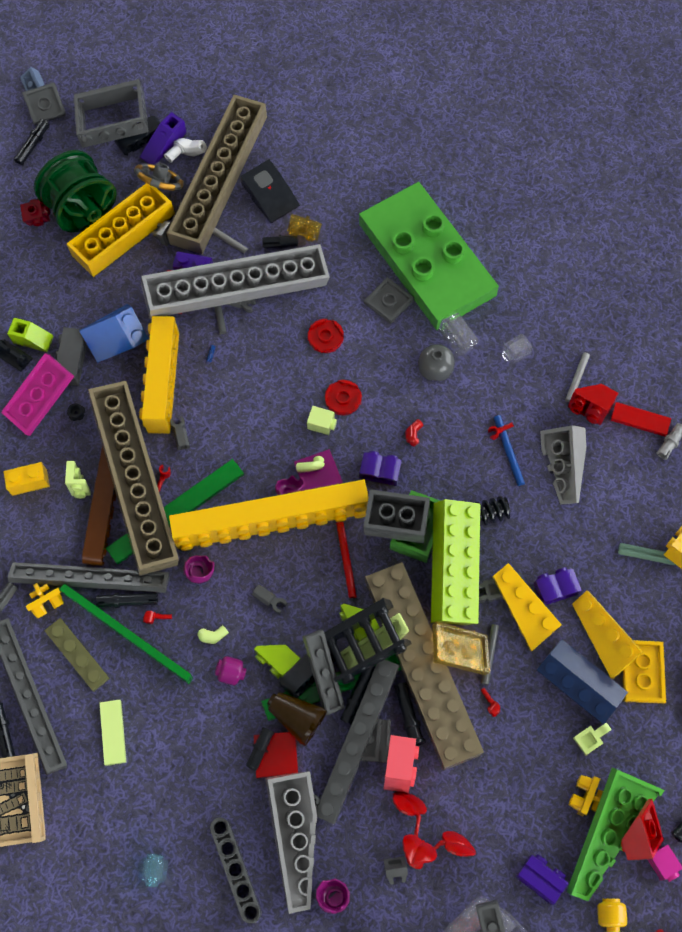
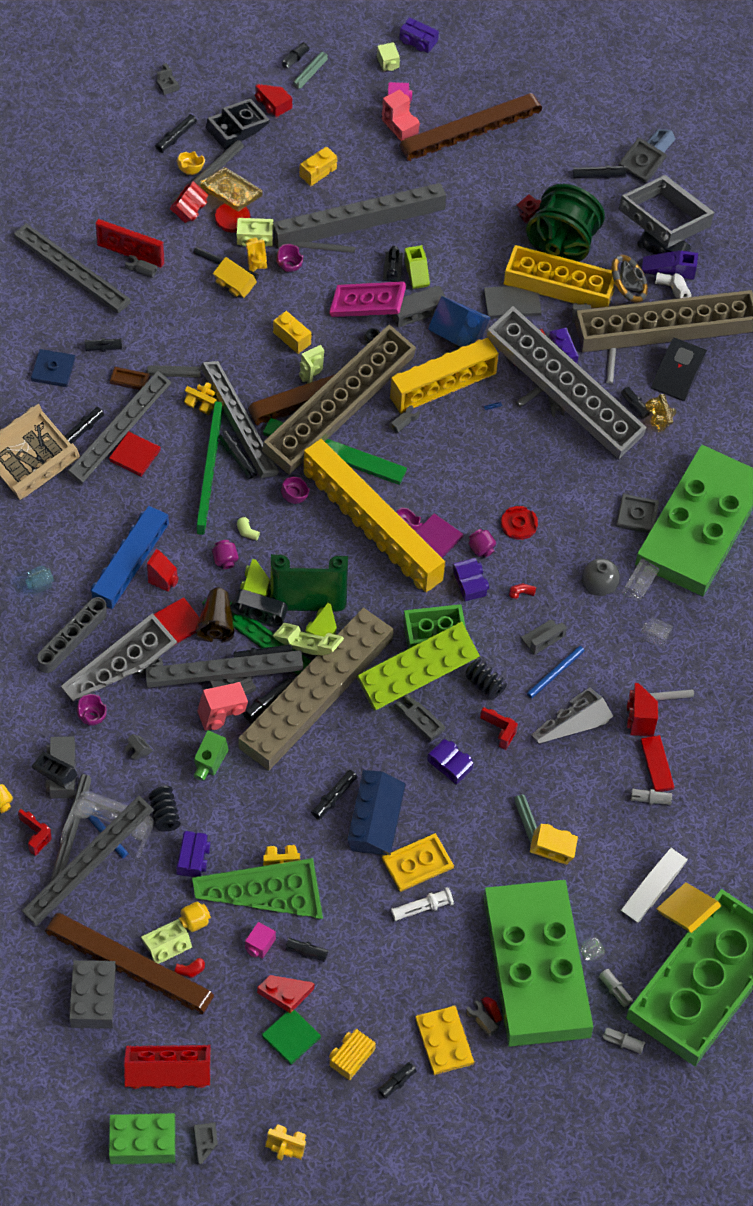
camera: 55 degrees right, 10 degrees down
(64, 696) = (134, 454): none -> red tile
(77, 654) = (172, 445): olive plate -> none
(112, 732) = (127, 501): yellowish green tile -> none
(115, 281) = (501, 299): none -> dark grey tile
(149, 617) = (234, 478): red hand -> none
(163, 475) = (360, 427): red hand -> none
(180, 764) = (130, 556): none -> blue brick
(218, 742) = (161, 571): none -> red slope
(259, 749) = (175, 604): black axle -> none
(268, 598) = (303, 552): dark grey bar -> none
(311, 466) = (441, 529): yellowish green arm -> none
(318, 613) = (309, 587): none -> dark green windscreen
(321, 339) = (569, 487): red tile -> none
(321, 420) = (484, 514): yellowish green brick -> none
(323, 671) = (263, 615): dark grey tile -> none
(346, 560) = (373, 594): red bar -> none
(349, 438) = (482, 543): none -> magenta head
(363, 620) = (306, 612): black fence -> none
(396, 516) = (426, 598): dark grey brick -> none
(417, 850) = (159, 735): red plant -> none
(441, 797) = (210, 755): none -> bright green torso
(460, 648) = (346, 706): clear yellow plate -> none
(469, 440) = (544, 636): none -> dark grey panel
(479, 880) = (164, 809): none -> black piece
(491, 645) = (358, 738): dark grey bar -> none
(494, 708) = (313, 761): red hand -> none
(499, 430) = (567, 653): red hand -> none
(528, 610) = (414, 746): yellow wing -> none
(540, 709) = (322, 808): none -> black pin
(555, 524) = (508, 726): none -> red bracket
(589, 739) = (332, 842): yellowish green plate -> none
(609, 639) = (430, 817): yellow wing -> none
(643, 835) = (276, 908): red slope -> none

